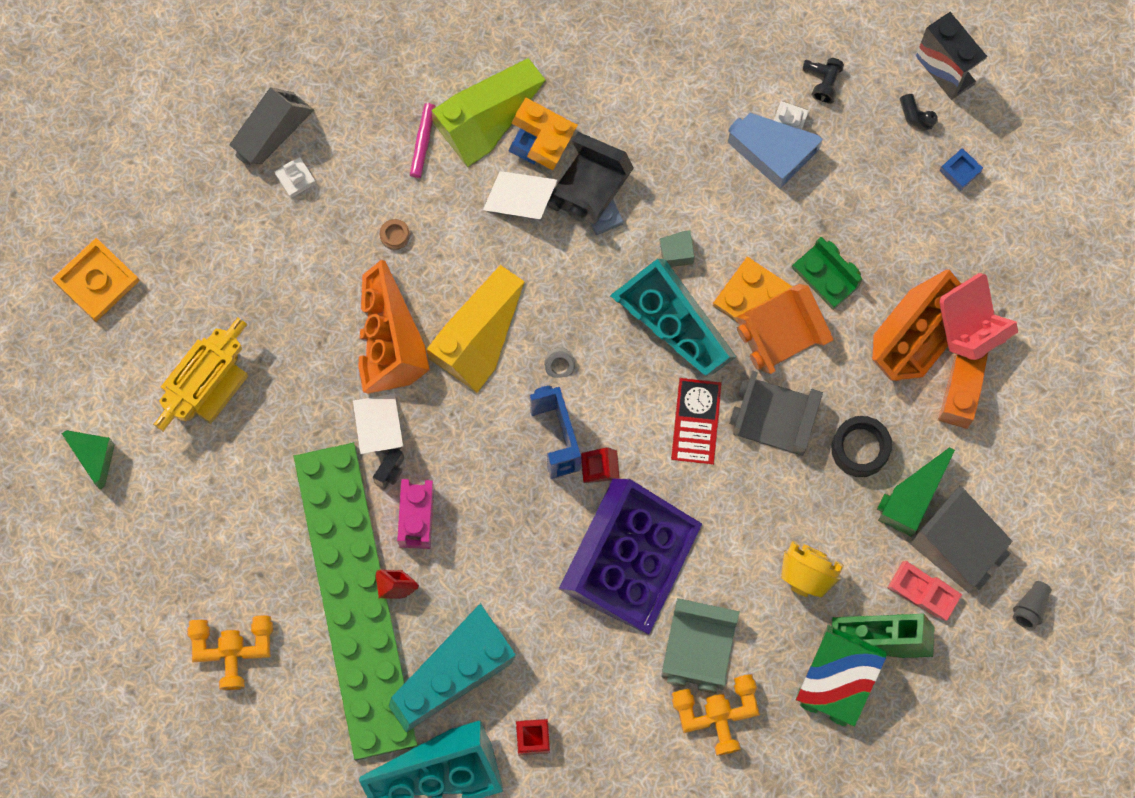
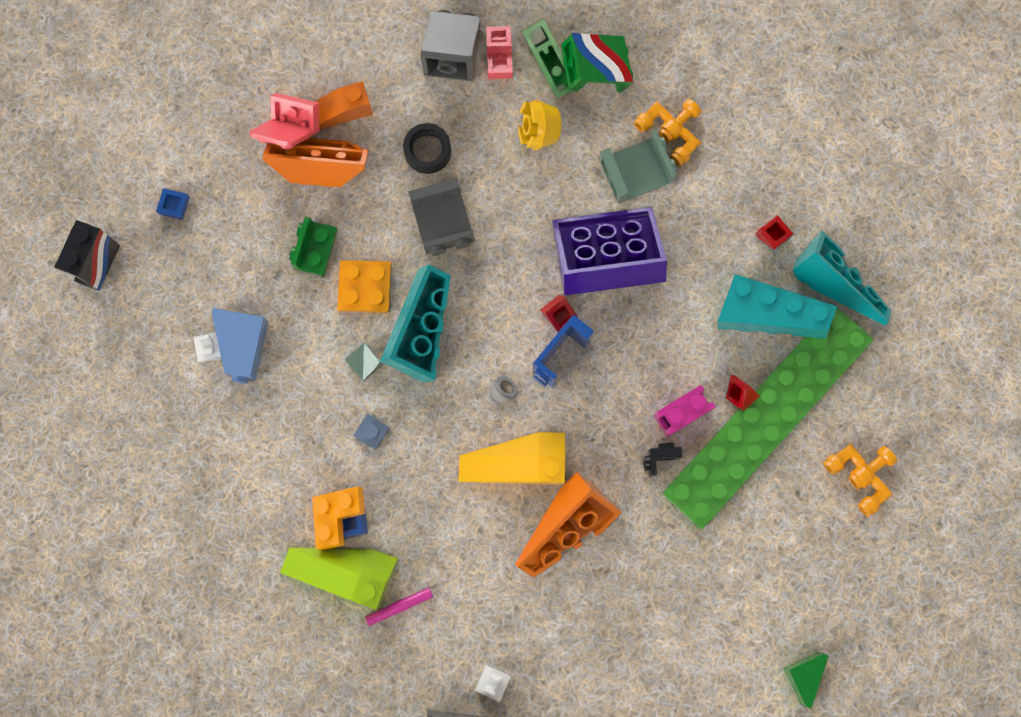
camera: 120 degrees left, 5 degrees up
(204, 378) = (697, 635): yellow piece -> none
(377, 423) = (639, 482): white sticker -> none
(394, 234) = (487, 575): medium nougat tile -> none
(520, 195) = (397, 499): white sticker -> none
(590, 179) = (353, 457): black panel -> none
(696, 421) = (482, 270): sticker -> none
(783, 327) = (376, 250): orange panel -> none
(830, 74) = (151, 342): black piece -> none
(911, 498) = (441, 94): green slope -> none
(916, 117) = (150, 260): black arm -> none

